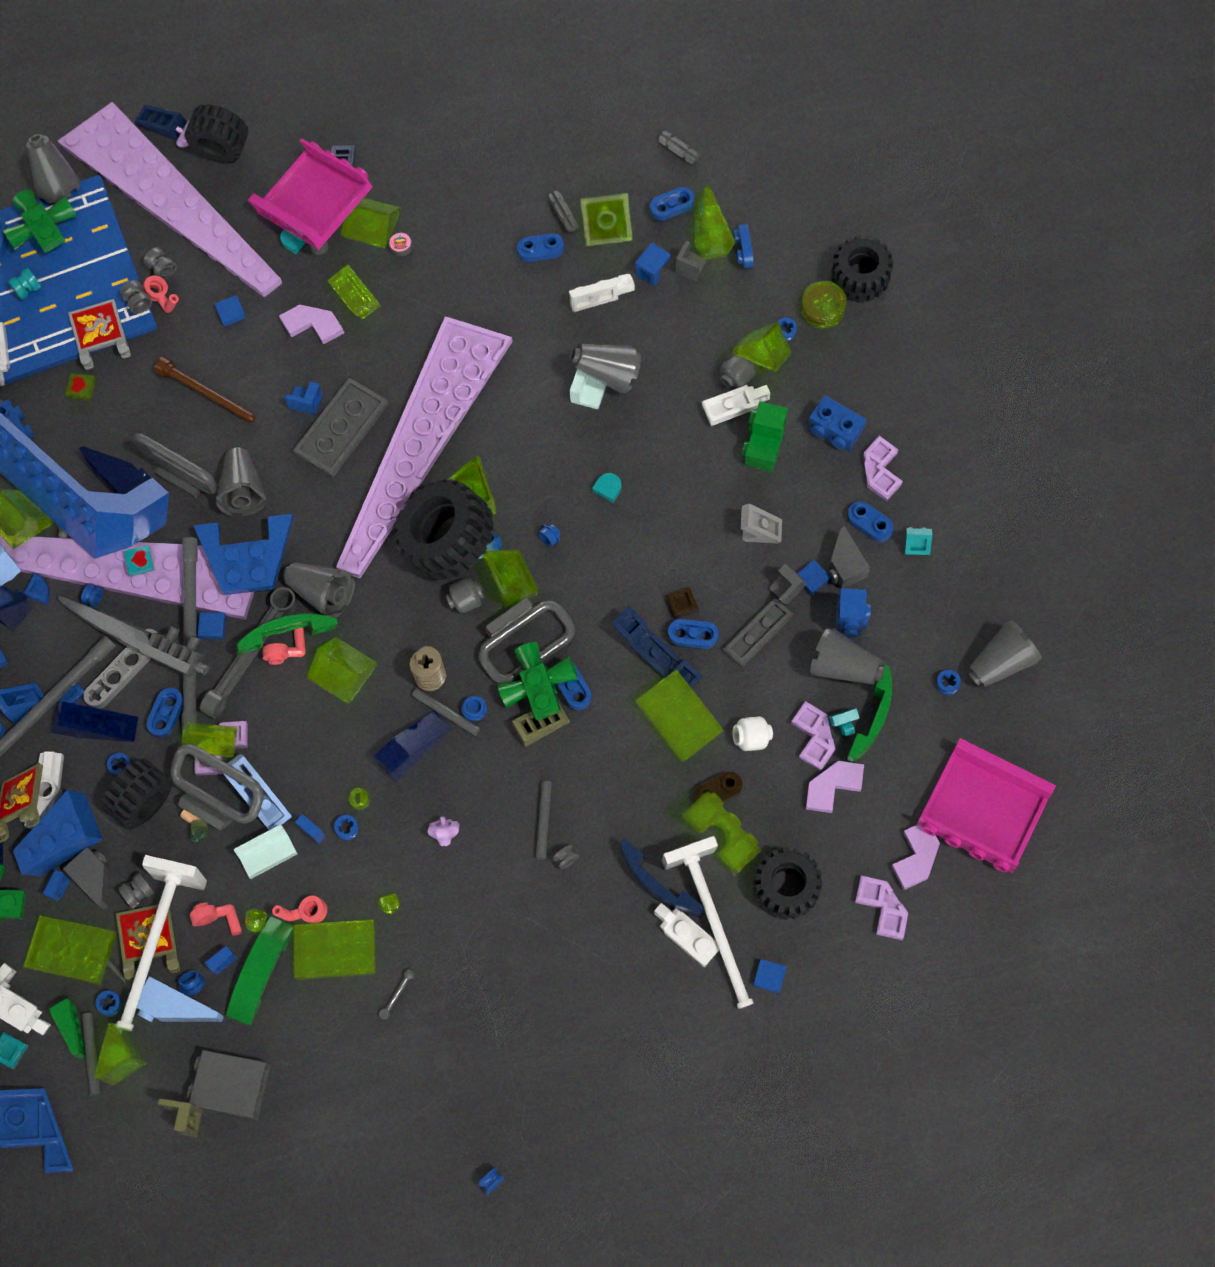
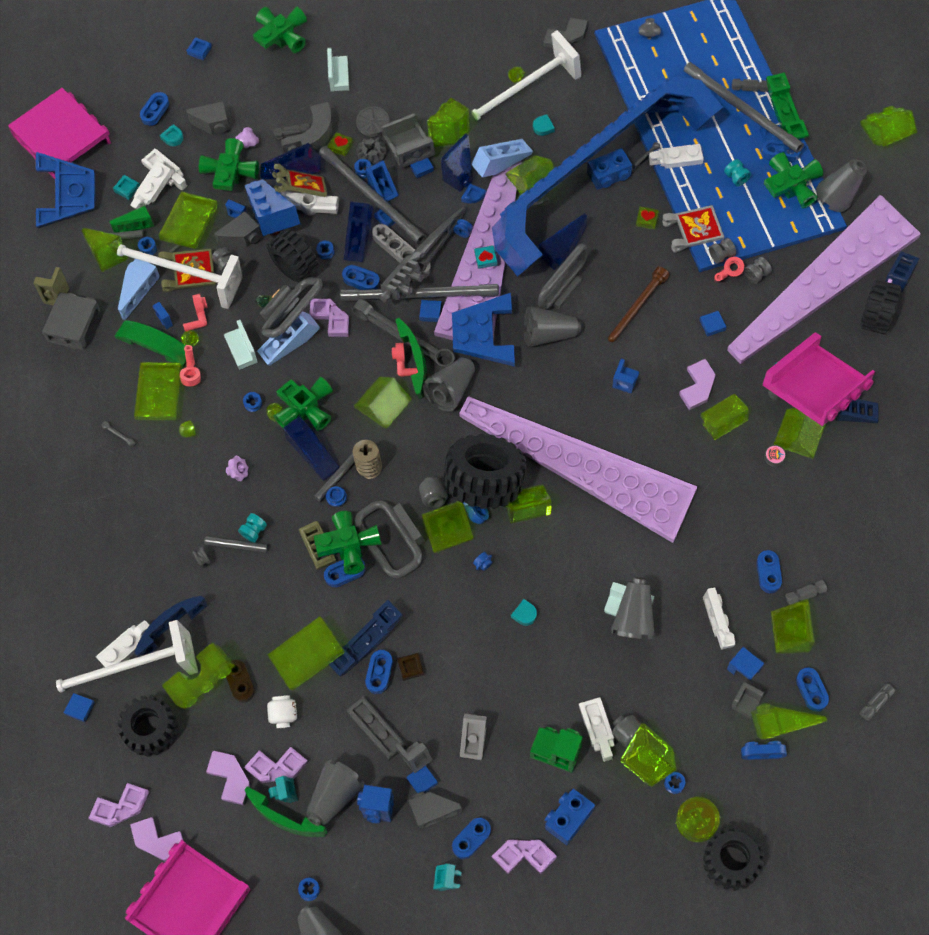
camera: 95 degrees right, 5 degrees down
(191, 983) = (150, 296): blue plate -> none
(213, 739) = (334, 306): clear neon green slope -> none
(310, 829) = (252, 375): blue tile -> none
(340, 427) = (598, 405): dark grey tile -> none
(350, 759) = (303, 403): none -> green brick
(523, 799) = (252, 527): none -> teal wheel

